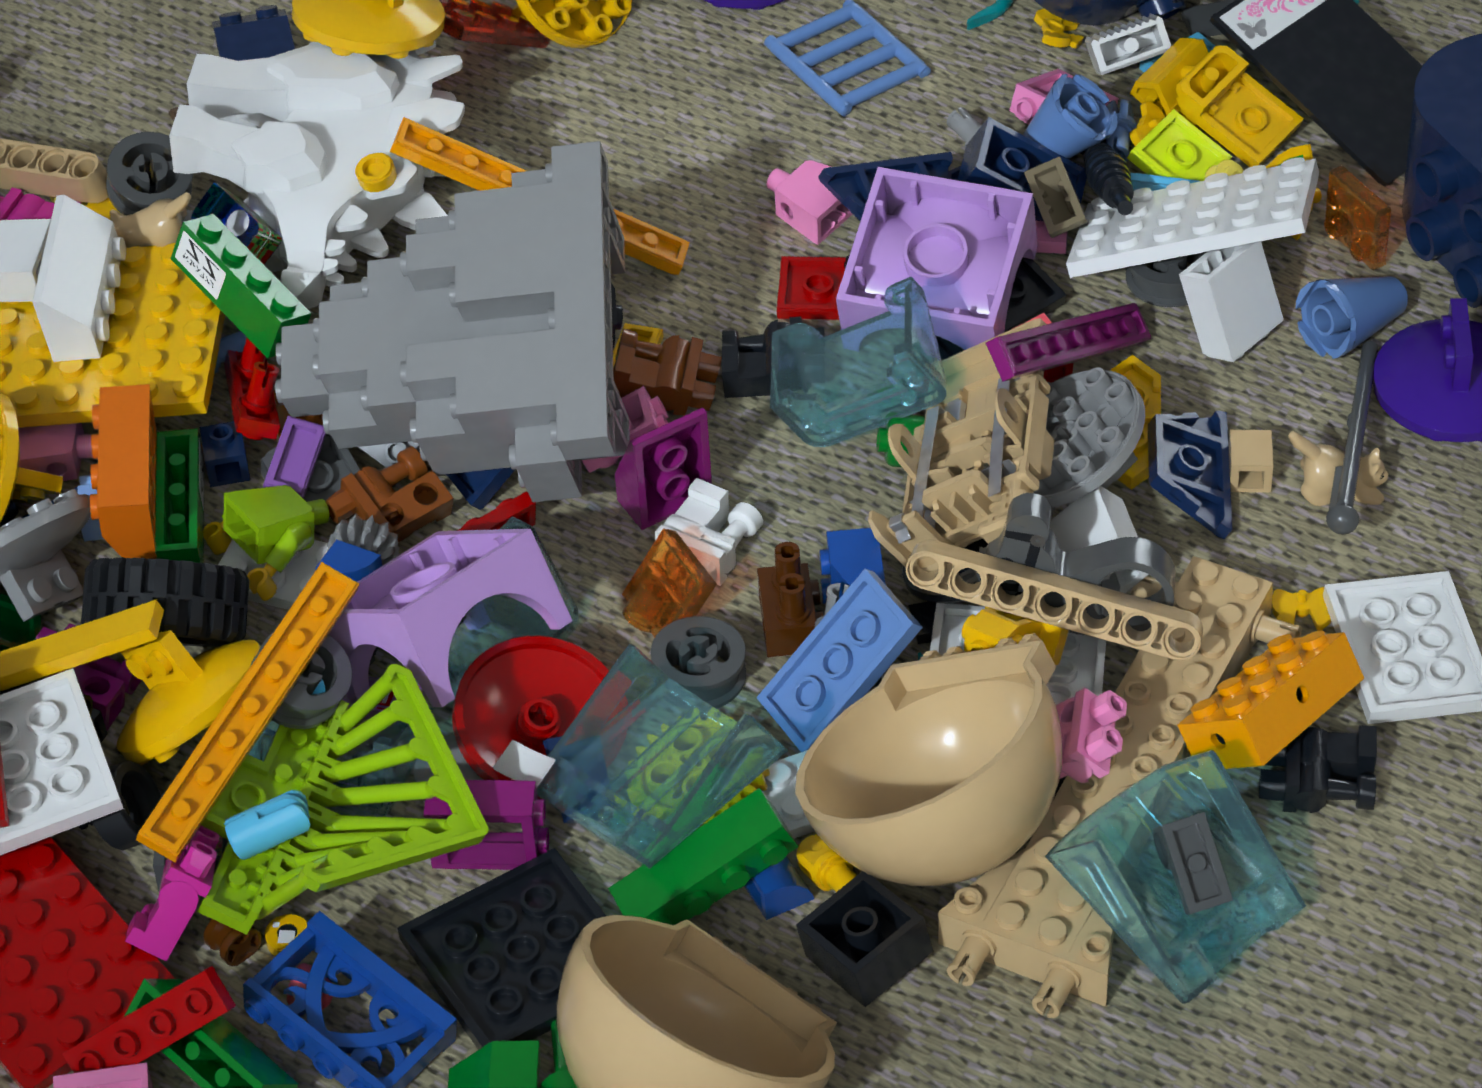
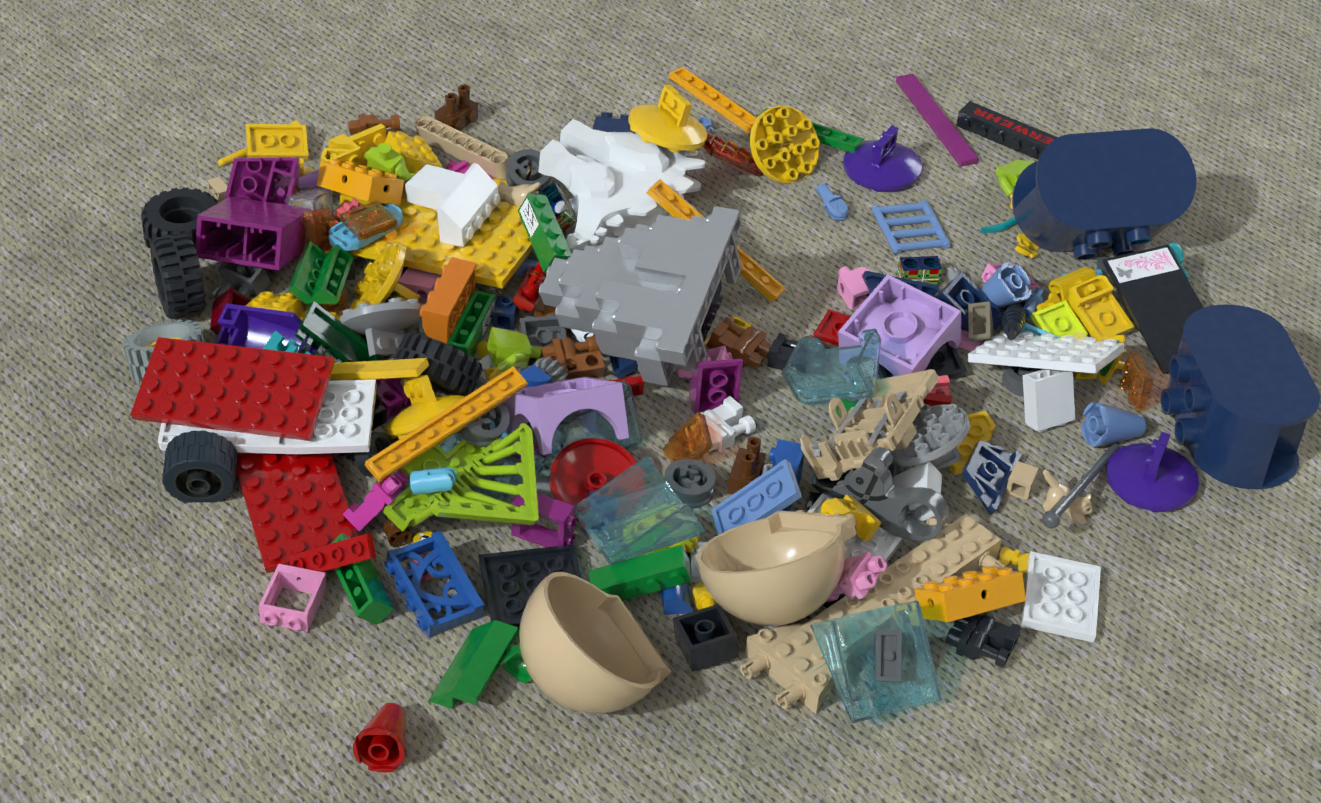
camera: 15 degrees right, 5 degrees down
(296, 455) = (537, 322): medium lavender tile -> none
(376, 172) = (635, 201): yellow tile -> none
(523, 763) = (574, 497): white sticker -> none
(696, 57) = (832, 203): none -> medium blue arm
(891, 135) = (921, 269): none -> piece
(1067, 341) = (946, 387): magenta tile -> none
(1069, 616) = (888, 506): tan beam -> none
(1128, 44) = (1057, 263): white brick -> none

